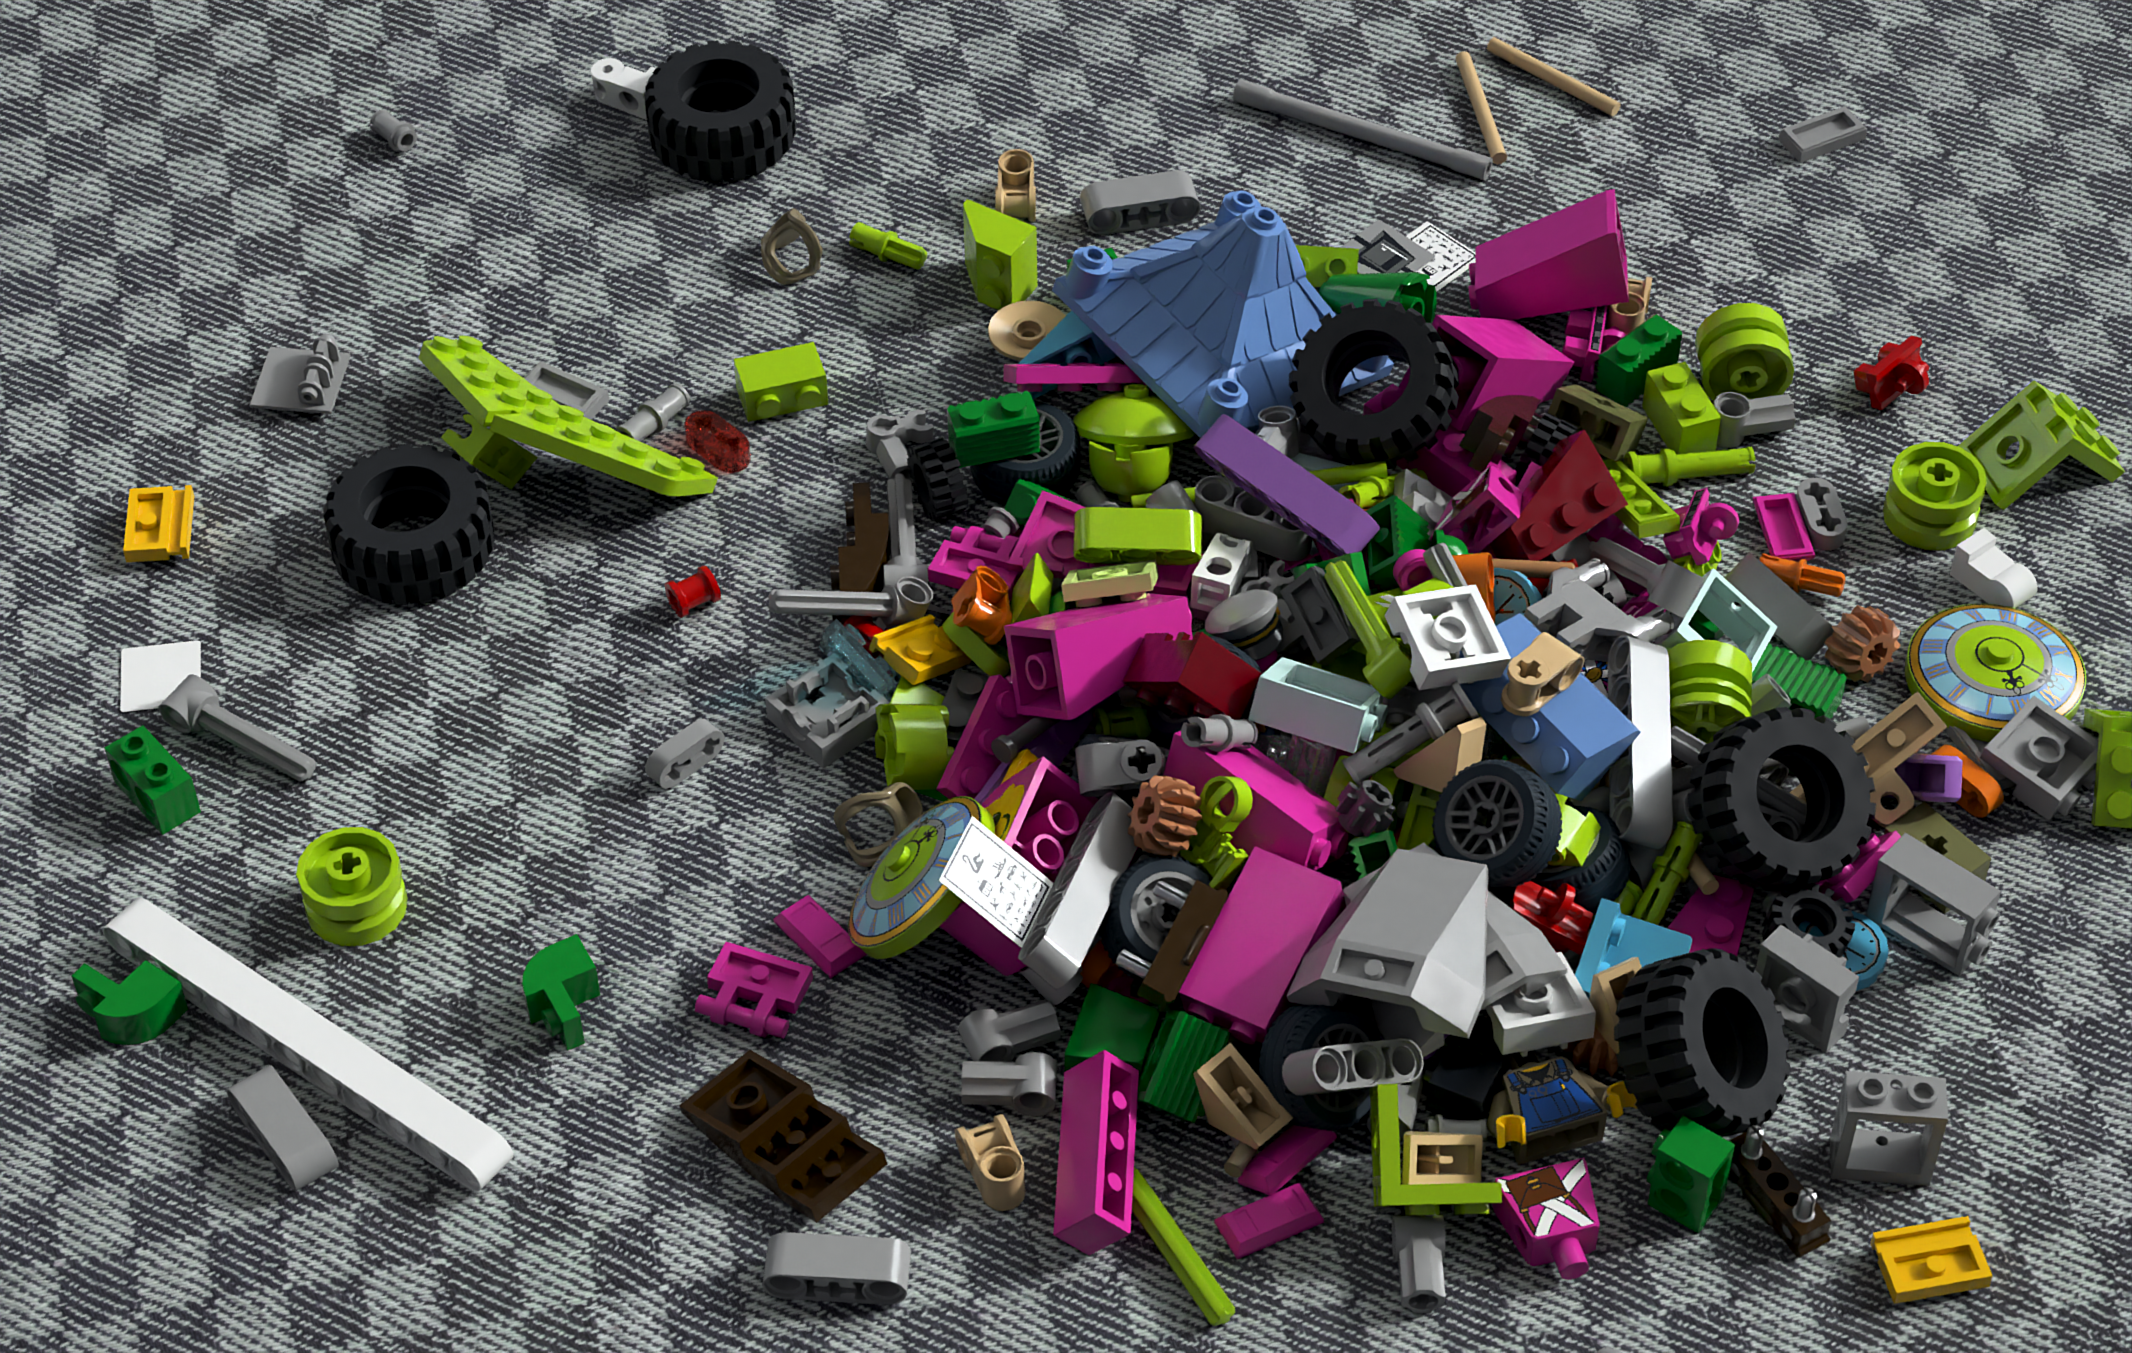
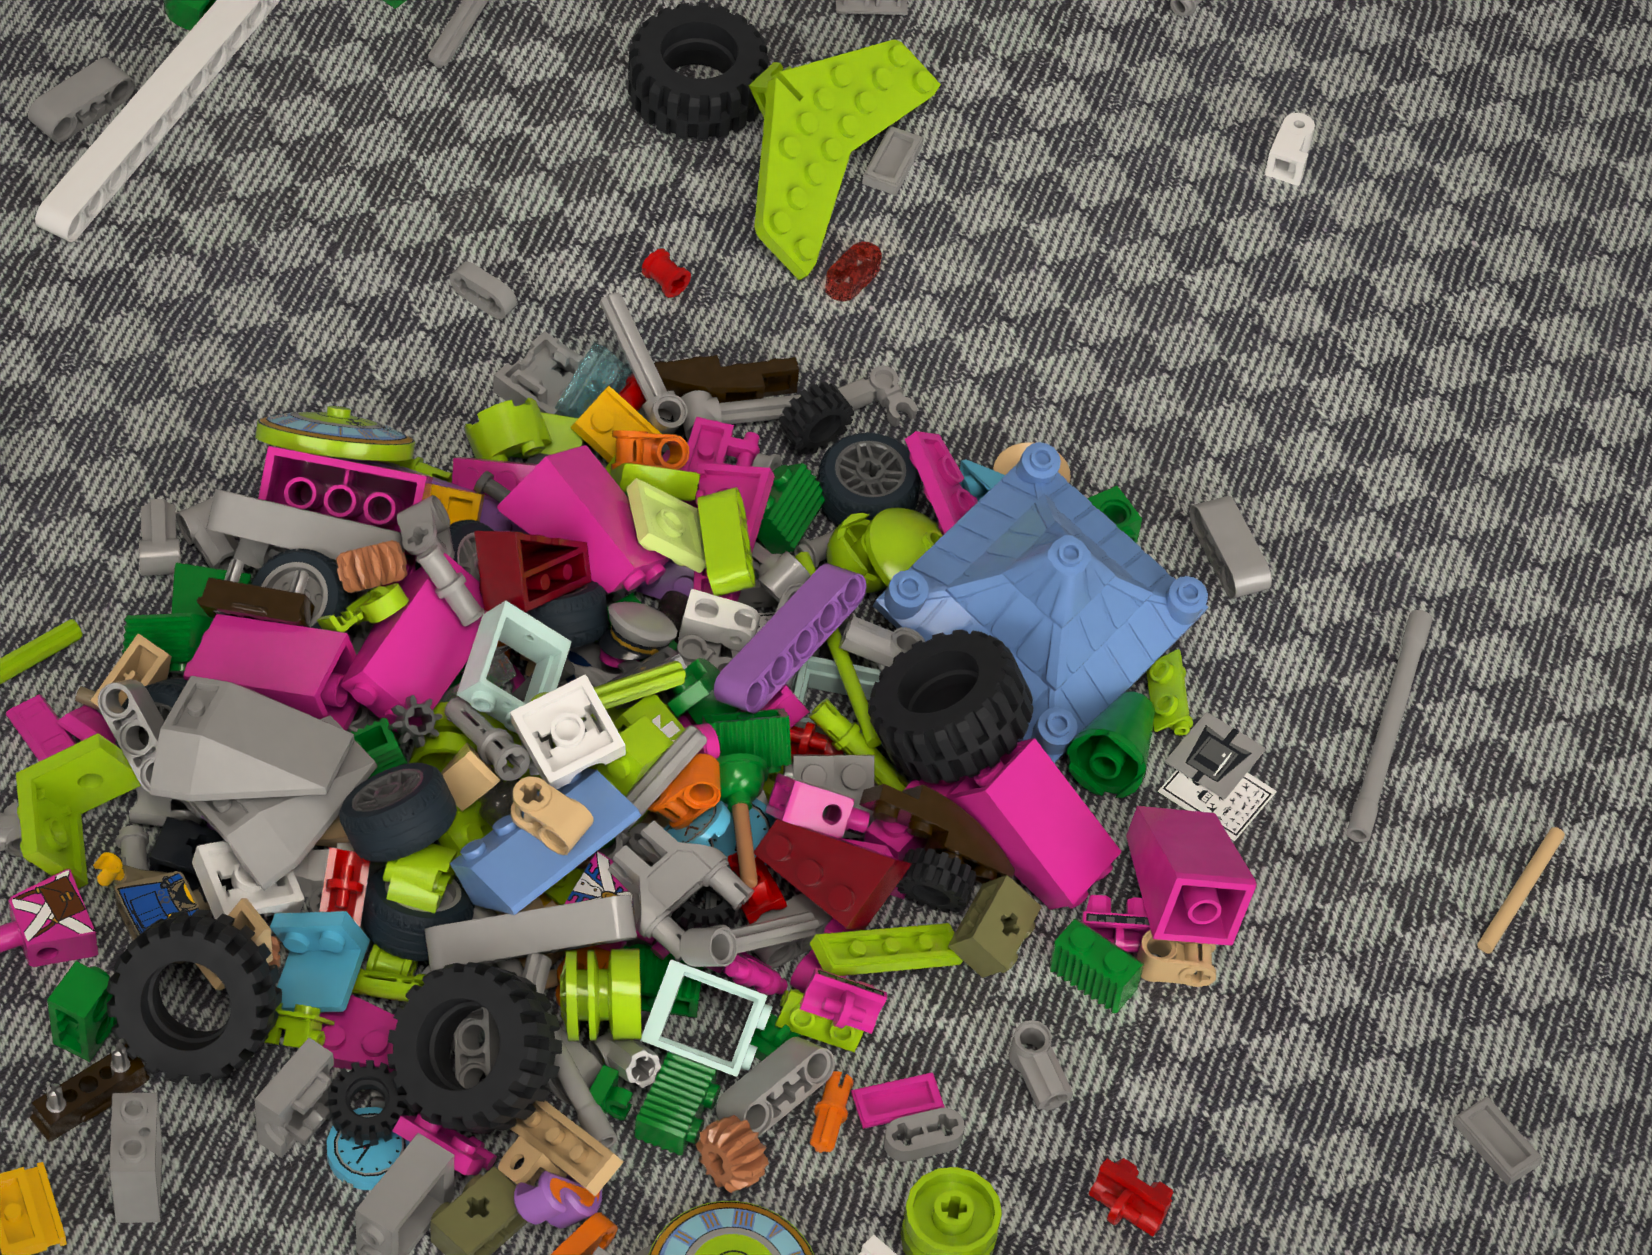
camera: 75 degrees right, 5 degrees up
(352, 886) = (310, 99): lime wheel -> none
(556, 983) = (226, 236): green brick -> none
(654, 414) = (870, 221): light grey pin -> none
(725, 142) = (1270, 178): black tyre -> none
(757, 978) = (252, 369): dark pink plate -> none
(781, 381) = (927, 302): lime brick -> none
(782, 233) = (1120, 280): dark tan piece -> none
(783, 1135) = (99, 401): dark brown slope -> none
(819, 936) = (315, 397): dark pink tile -> none
(887, 246) = (1127, 362): lime axle -> none
(900, 803) = (438, 435): dark tan piece -> none
(993, 1163) = (80, 537): tan piece -> none
(994, 429) = (851, 433): green brick -> none
(996, 882) = (285, 456): white sticker -> none
(999, 255) = (1104, 431): lime slope -> none
(1016, 187) = (1225, 448): tan piece -> none
(1096, 1153) = (83, 596): dark pink brick -> none
(1441, 1158) = (90, 824): tan slope -> none
(1481, 107) = (1455, 827): tan bar -> none
(1668, 466) = (959, 1000): lime pin -> none
(1680, 409) = (1038, 995): lime brick -> none
(1744, 352) = (1103, 1045): lime wheel -> none

